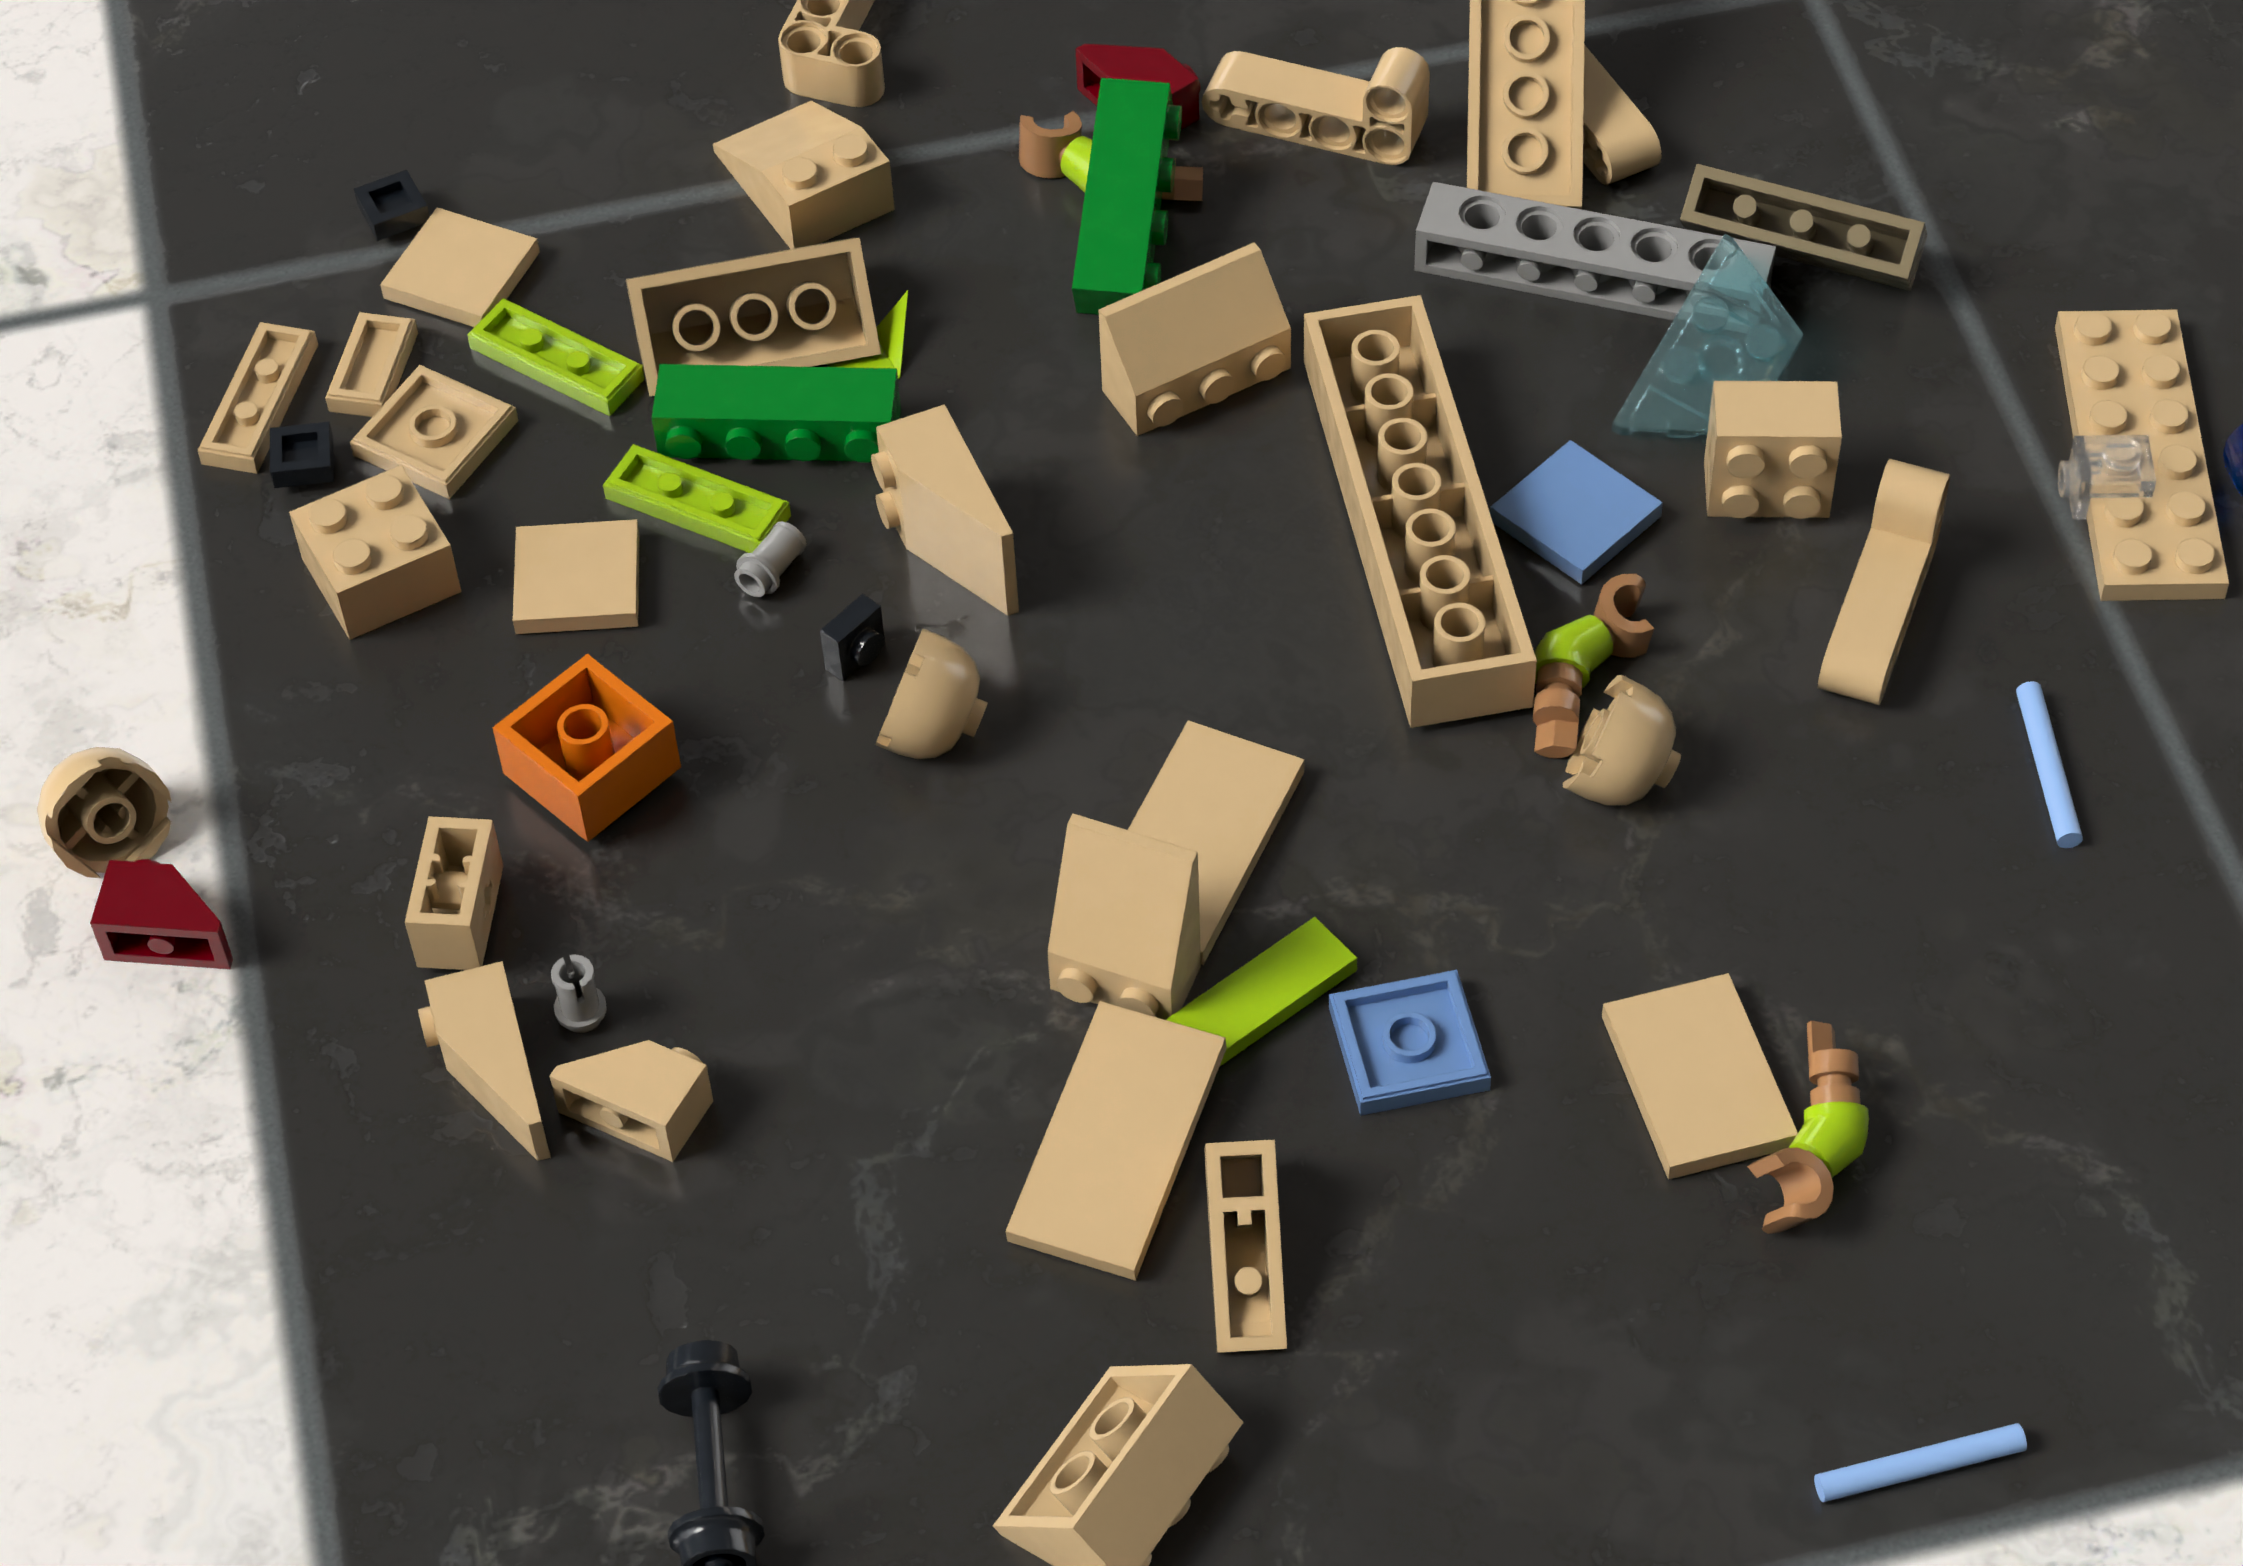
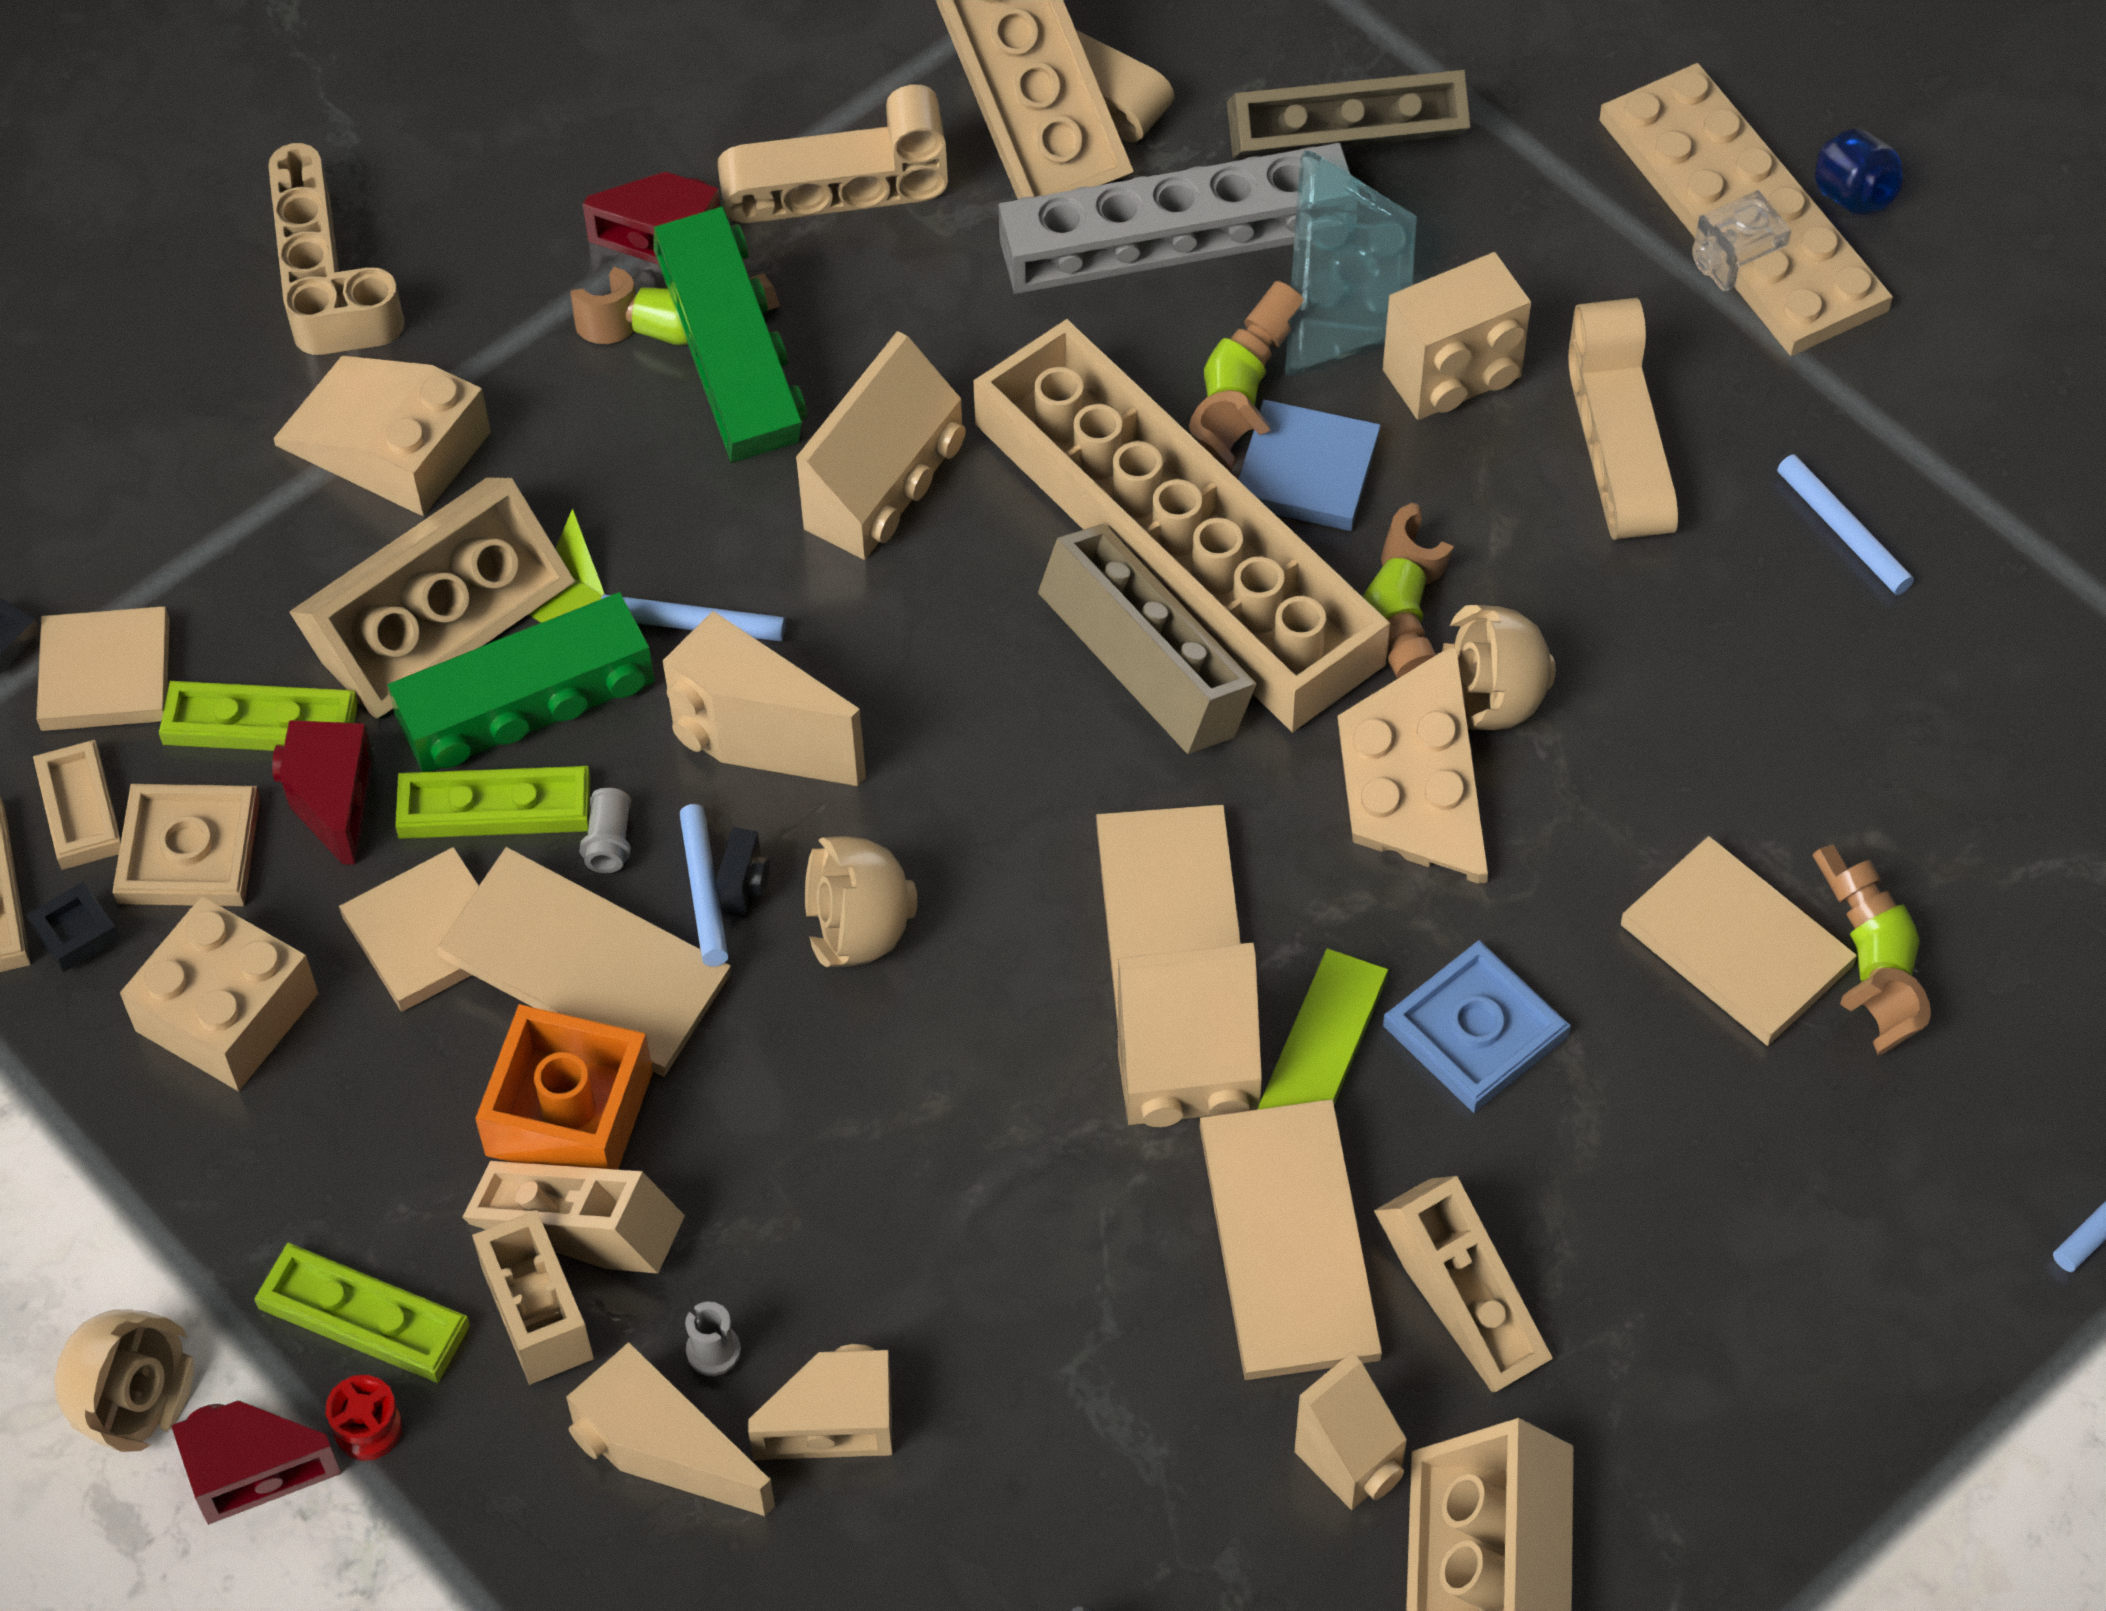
camera: 30 degrees left, 5 degrees up
(254, 921) = (361, 1401): none -> red wheel
(327, 851) = (362, 1312): none -> lime tile
(547, 851) = (587, 1212): none -> tan slope
(573, 424) = (327, 780): none -> dark red slope
(681, 652) = (581, 956): none -> tan tile
(810, 646) = (703, 885): none -> light blue bar
(969, 427) = (689, 617): none -> light blue bar
(1050, 1314) = (1350, 1434): none -> tan slope
(1322, 591) = (1146, 638): none -> dark tan brick
(1494, 801) = (1414, 770): none -> tan wing
(1555, 410) = (1236, 371): none -> medium nougat piece

